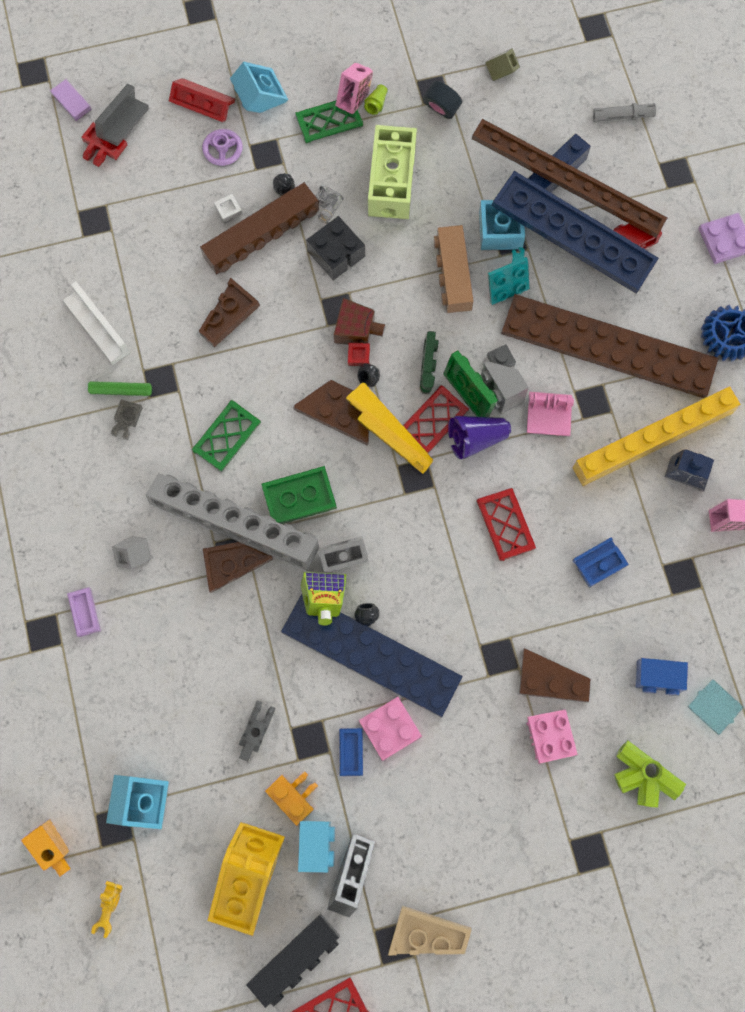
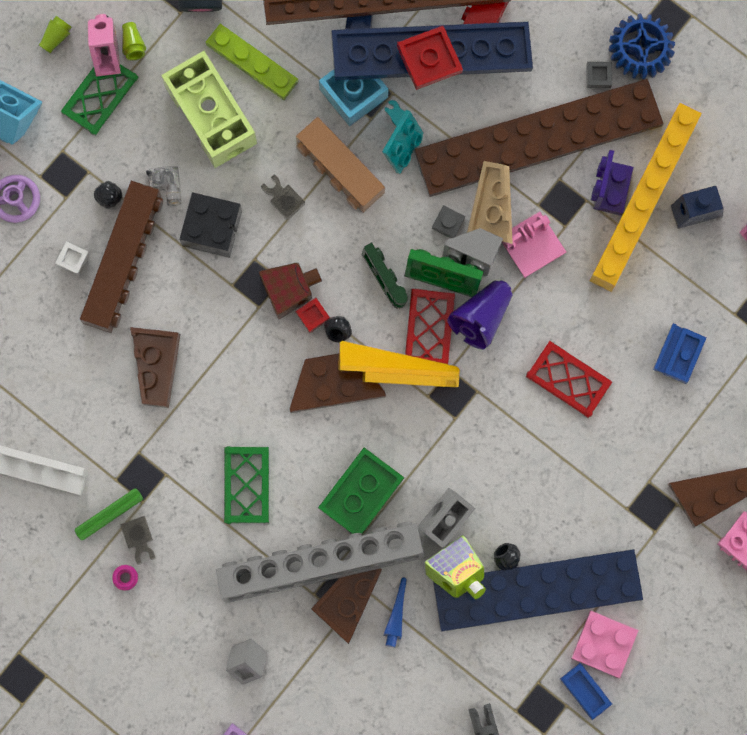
camera: 40 degrees left, 5 degrees up
(97, 431) = (119, 571): none -> dark pink plate
(251, 603) = (394, 627): none -> blue piece
(329, 62) = (55, 33): none -> lime cone
(399, 266) = (284, 199): none -> clear smoke plate
(446, 165) = (252, 61): none -> lime plate
(543, 362) = (493, 202): none -> tan wing
(568, 231) = (429, 57): none -> red plate
(637, 411) = (612, 188): none -> dark purple bracket
(684, 332) = (599, 74): none -> dark grey plate

